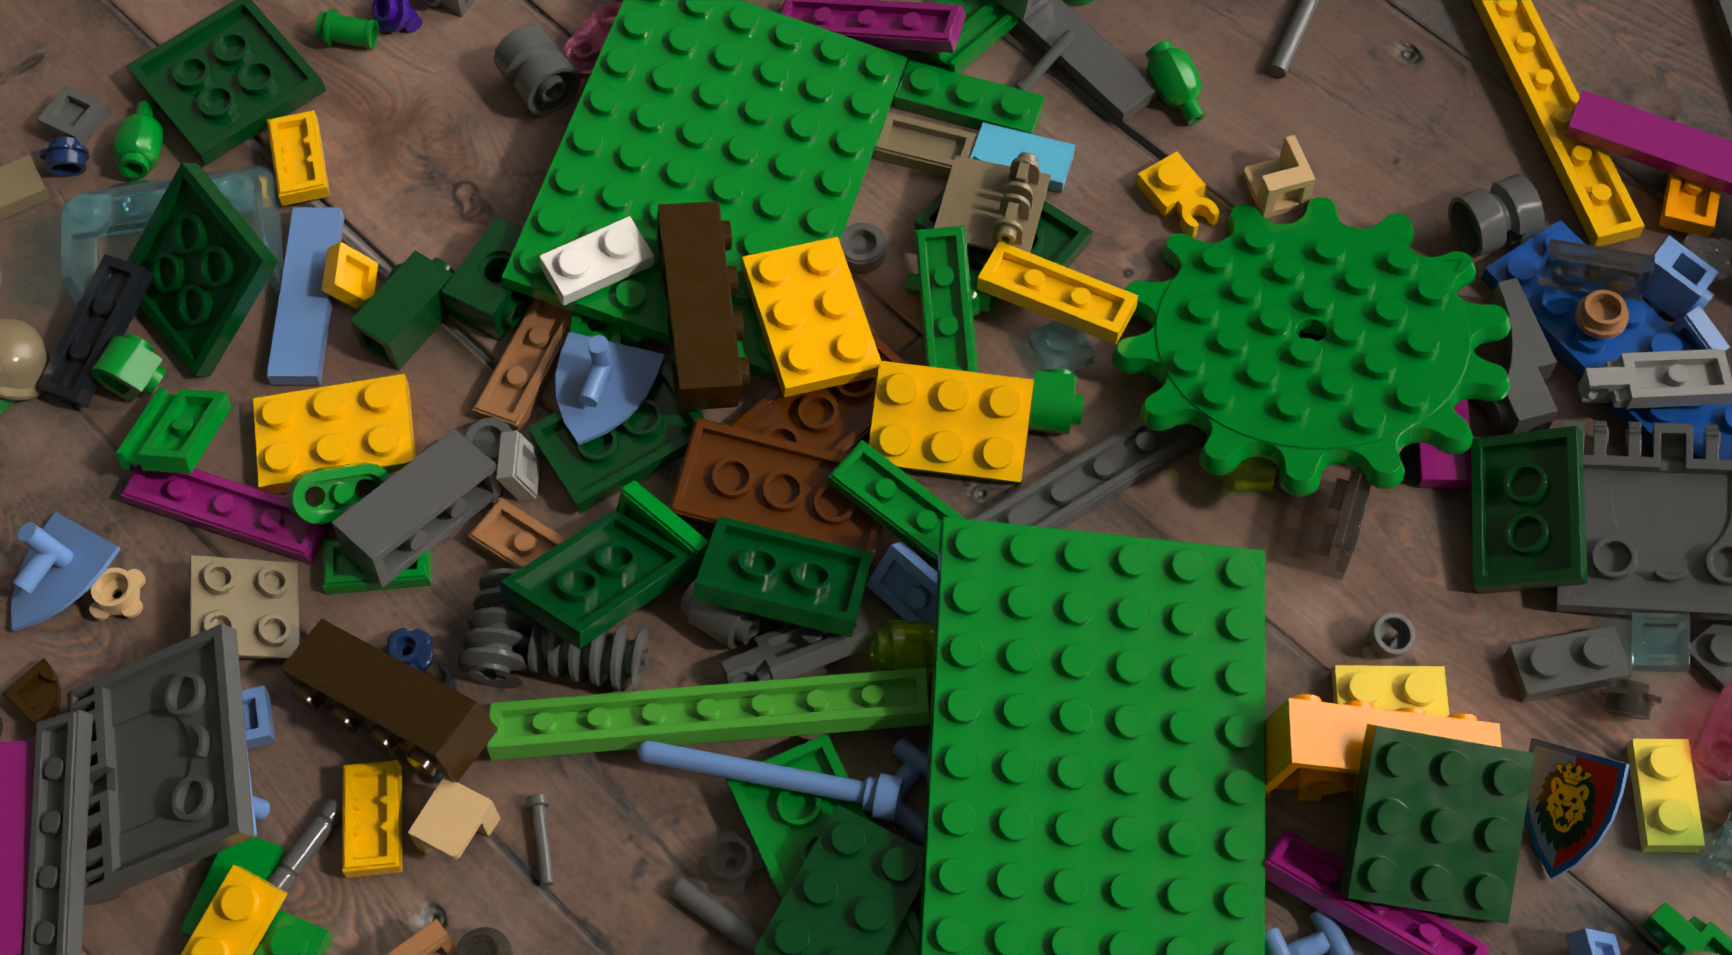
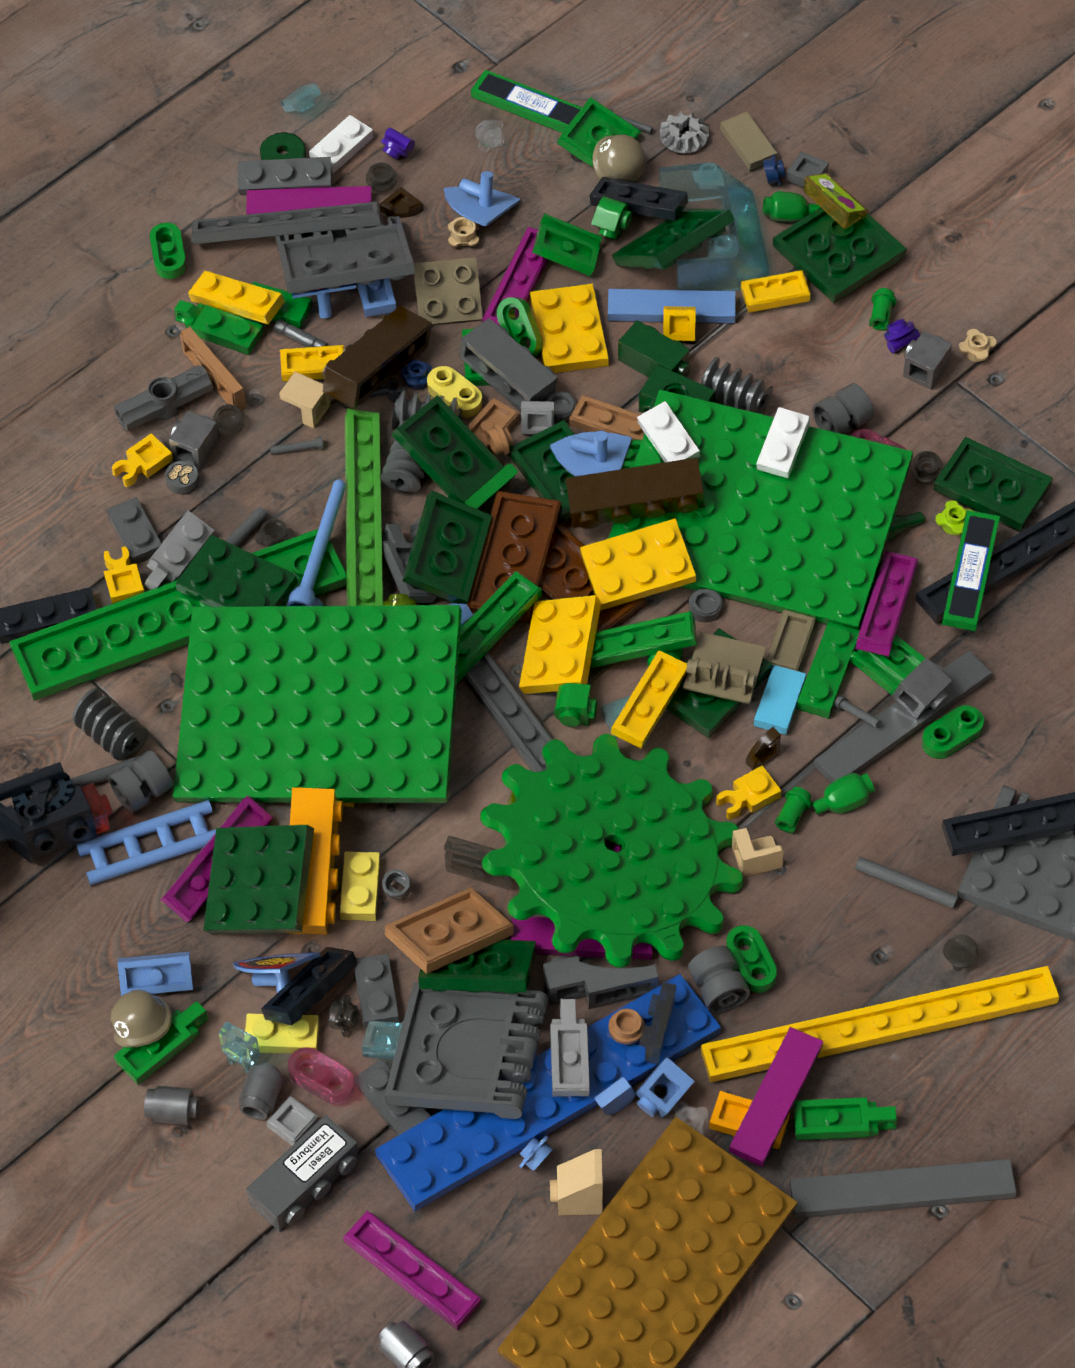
camera: 90 degrees right, 5 degrees down
(146, 72) = (834, 199): none -> clear yellow slope
(450, 597) = (455, 386): none -> light yellow plate
(479, 199) = (735, 391): none -> dark grey piece
(565, 514) = (499, 440): none -> medium nougat plate
(621, 111) = (783, 442): none -> white plate
(1108, 170) = (764, 749): none -> dark brown tile
(1204, 138) = (796, 802): none -> green pin
(1444, 182) = (754, 960): none -> green plate
(1475, 552) = (449, 930): none -> medium nougat tile
(1654, 767) = (309, 986): none -> black plate
(1671, 79) = (841, 1118): none -> green hinge

